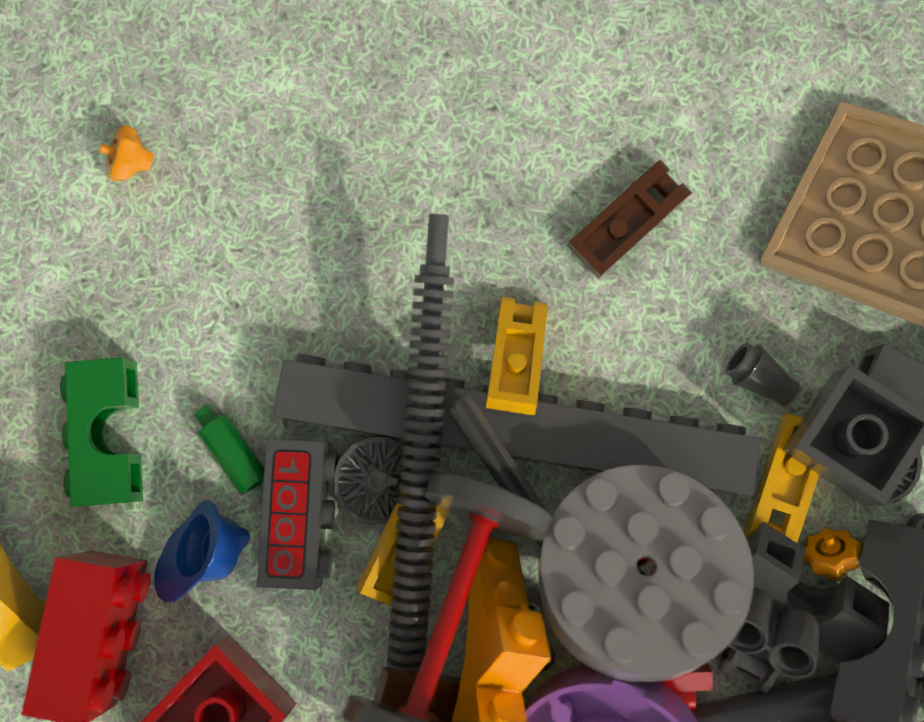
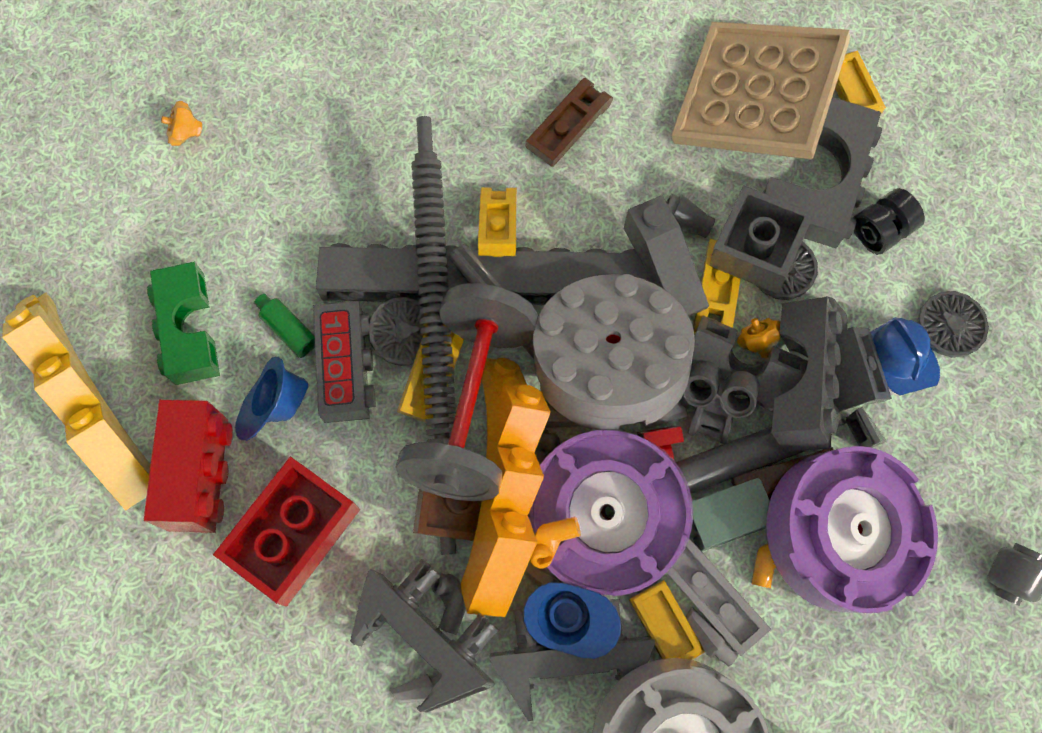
camera: 10 degrees left, 10 degrees down
(730, 445) = (665, 253): none -> dark grey slope

